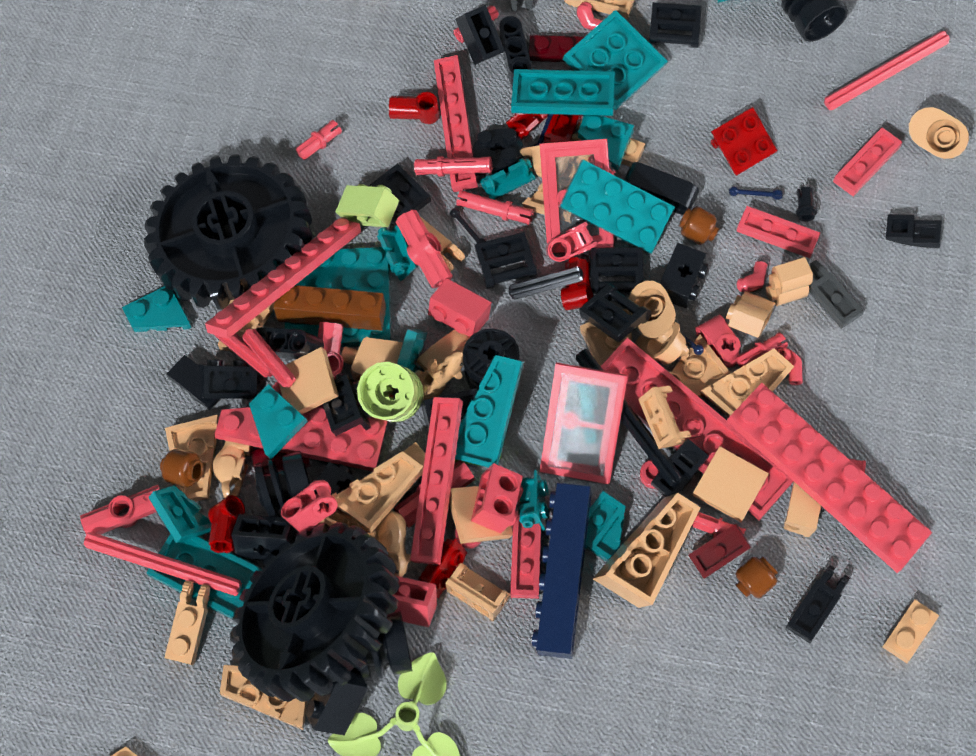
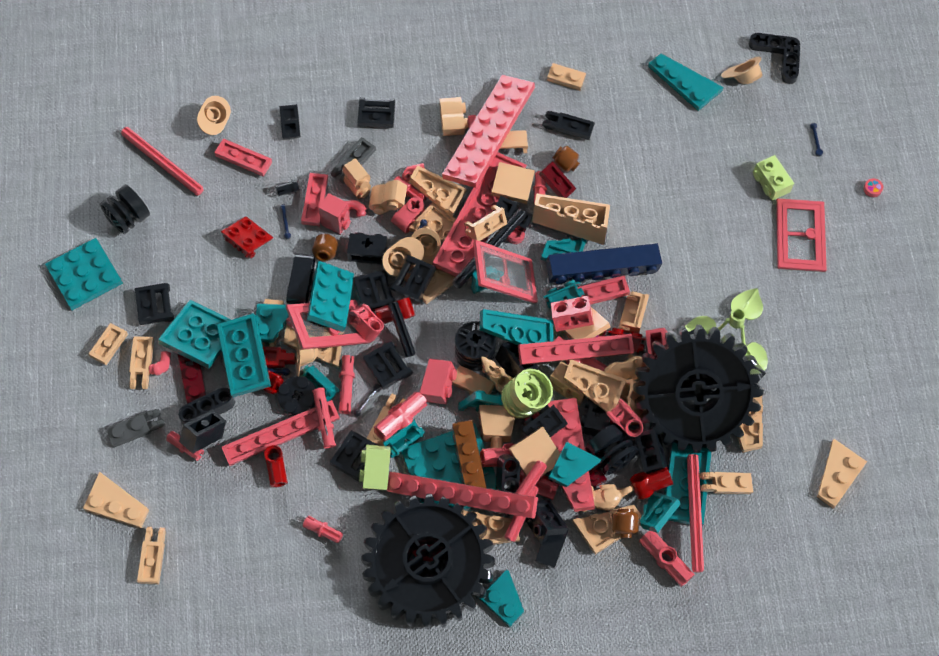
camera: 115 degrees left, 0 degrees up
(741, 241) = (334, 214): none -> coral brick
(872, 440) = (452, 116): none -> light nougat brick
(895, 341) = (376, 116): none -> black plate

